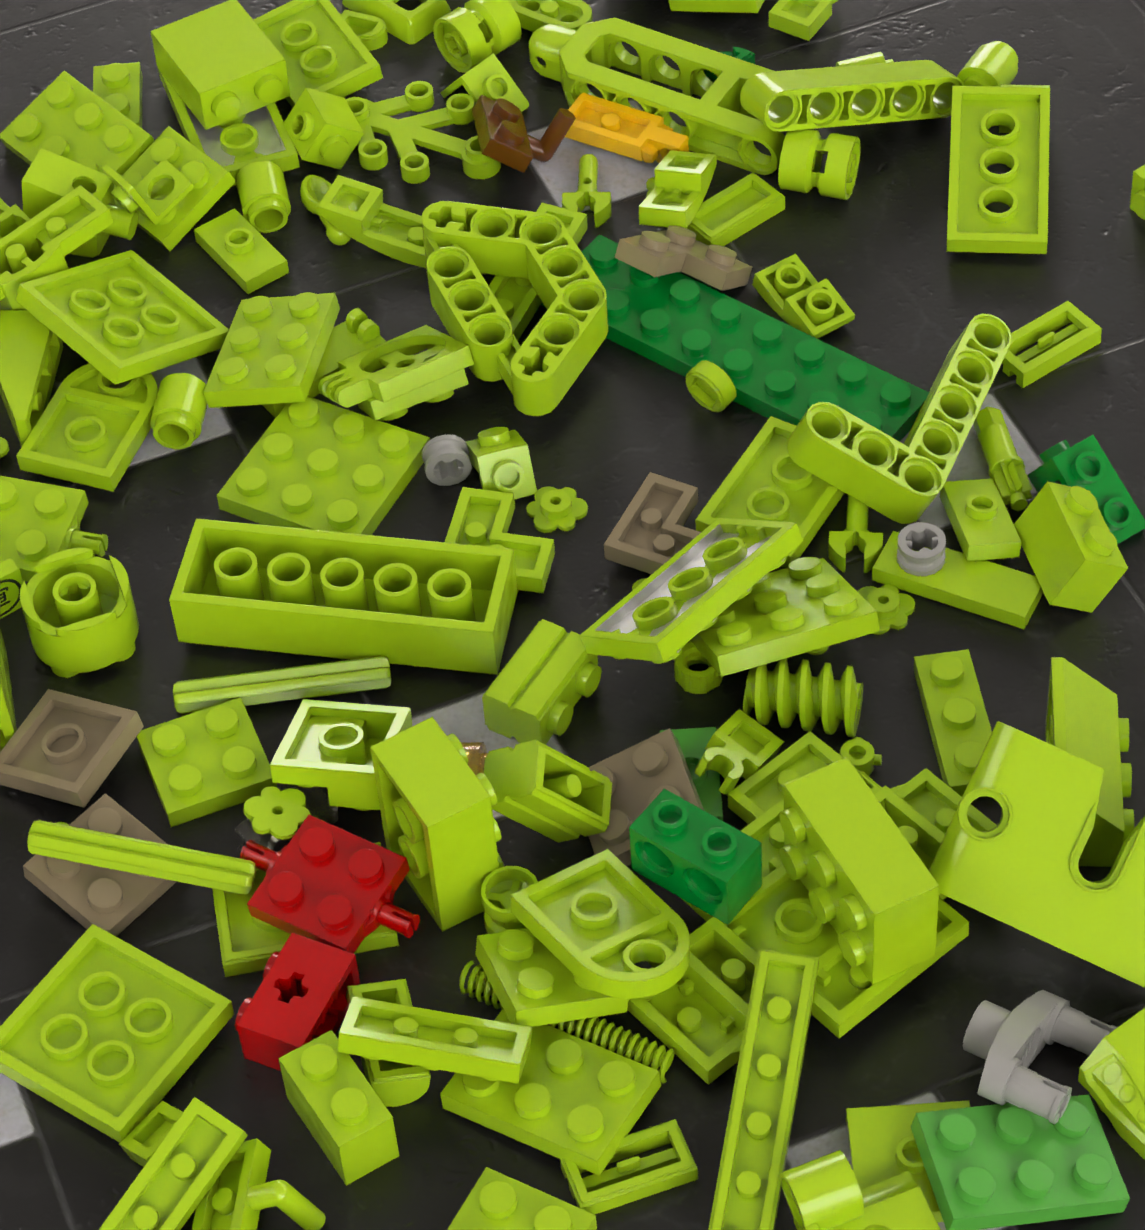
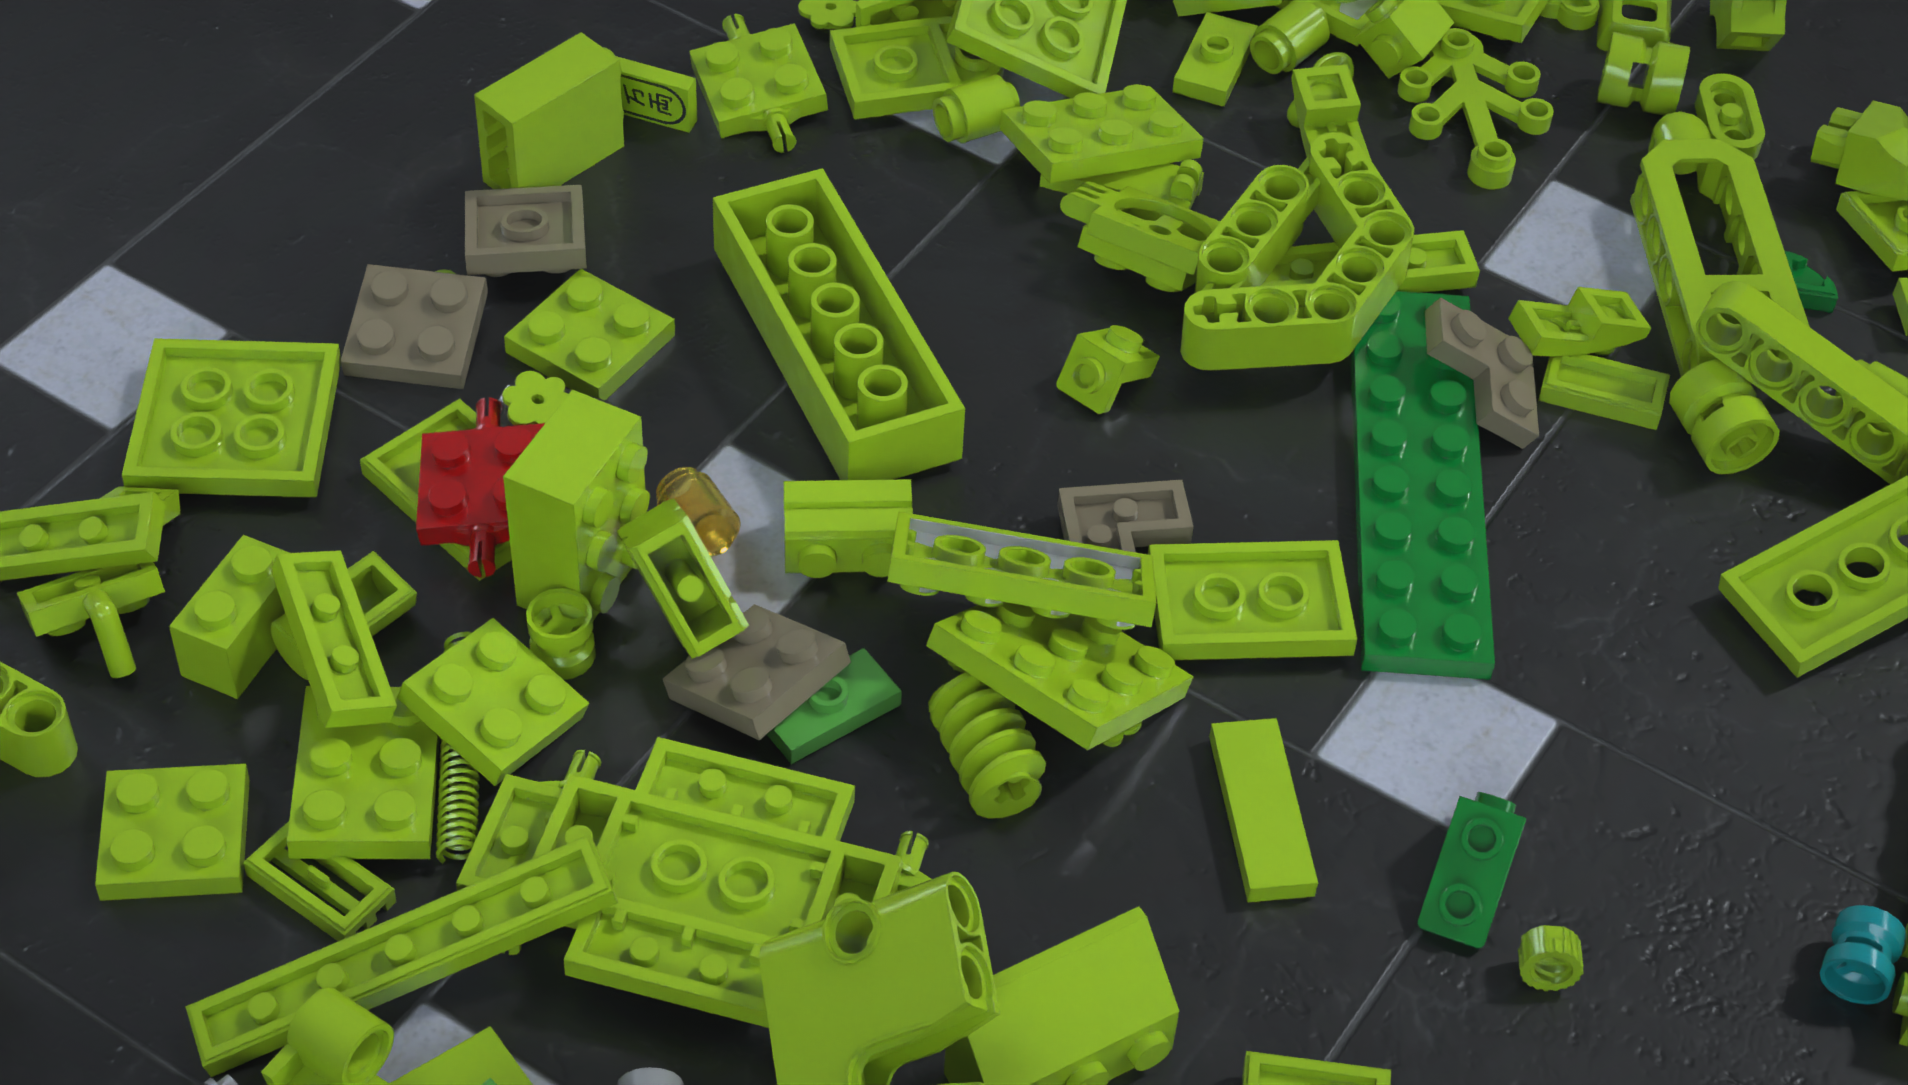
camera: 50 degrees right, 0 degrees up
(80, 612) = (676, 157): lime brick -> none
(141, 857) = (422, 334): lime axle -> none
(284, 684) = (718, 345): lime axle -> none
(296, 1000) = (345, 518): red brick -> none
(323, 470) = (993, 251): lime plate -> none
(331, 749) = (674, 408): lime plate -> none
(446, 460) = (1070, 318): light grey bush -> none
(484, 520) = (994, 401): lime plate -> none
(489, 80) = (1579, 127): lime bracket -> none
(505, 136) = (1527, 160): reddish brown plate -> none
(556, 509) = (1095, 440): lime plant -> none
(587, 192) = (1516, 268): lime bar -> none
(603, 923) = (553, 697): lime plate -> none
(623, 129) = (1624, 244): yellow hinge -> none
(696, 856) = (671, 728): green brick -> none
(710, 386) = (1344, 476): lime tile -> none
(738, 750) = (882, 718): lime plate -> none
(767, 784) = (887, 787): lime plate -> none
(801, 299) = (1535, 496): lime slope -> none
(855, 534) = (1253, 693): lime bar -> none
(859, 871) = (724, 864): lime brick -> none
(861, 755) = (954, 831): lime piece -> none
(890, 606) = (1178, 764): lime plant -> none
(908, 476) = (1425, 676): lime beam -> none
(917, 537) = (1243, 754): light grey bush -> none
(953, 713) = (1072, 894): lime plate -> none
(980, 519) = (1352, 786): lime plate -> none
(1002, 458) = (1458, 769): lime piece -> none
(1052, 349) = (1660, 744): lime tile -> none
(1070, 547) = (1365, 878): lime brick -> none

